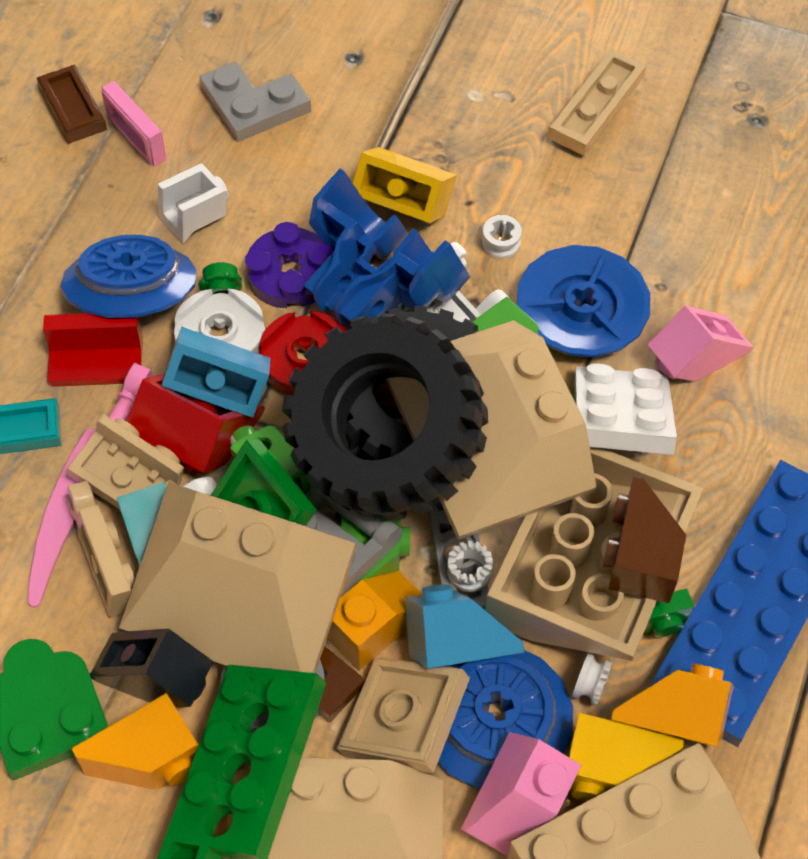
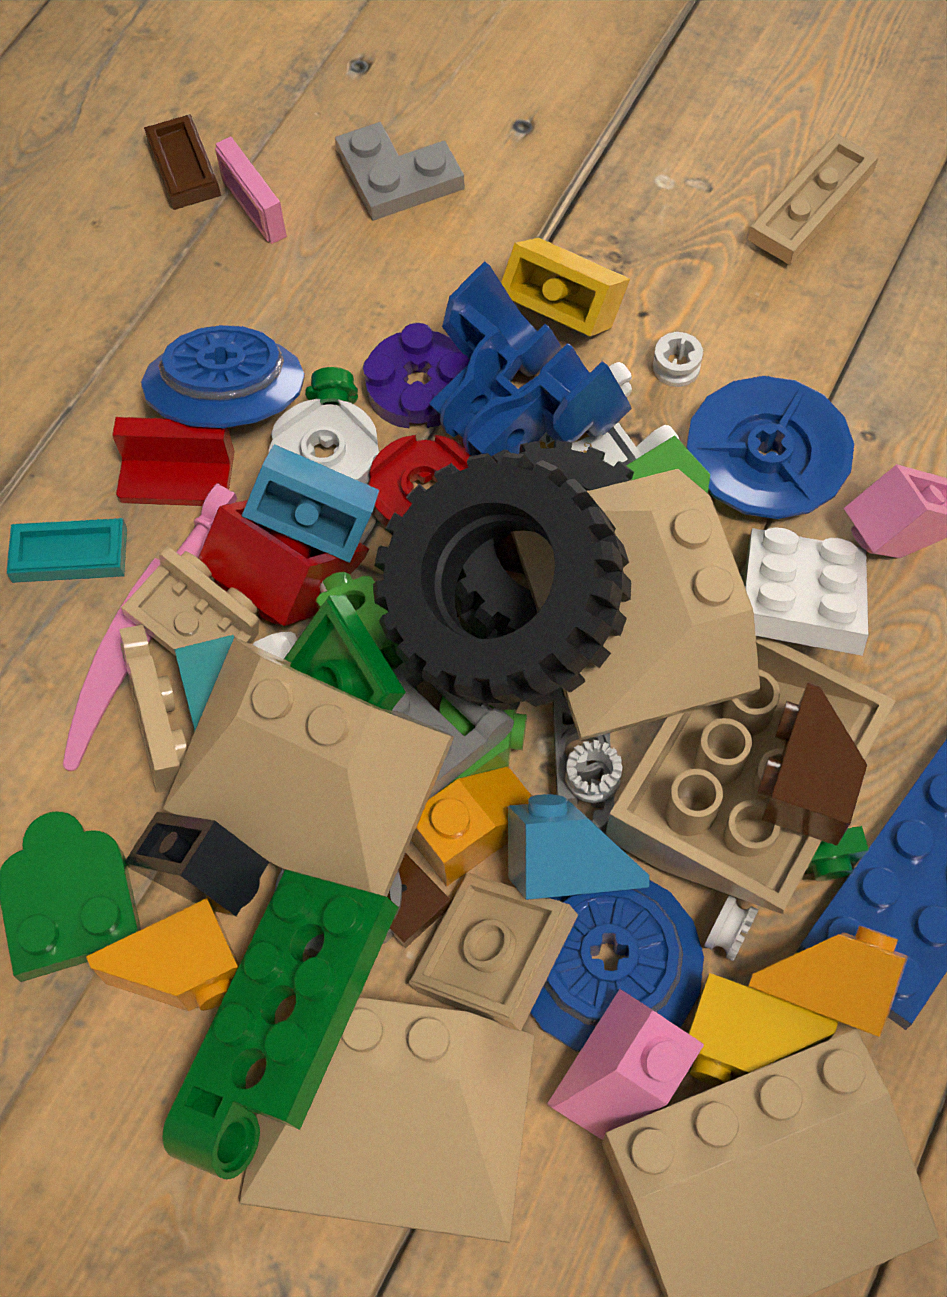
camera: 10 degrees right, 5 degrees up
(191, 201) = (308, 289): white window -> none

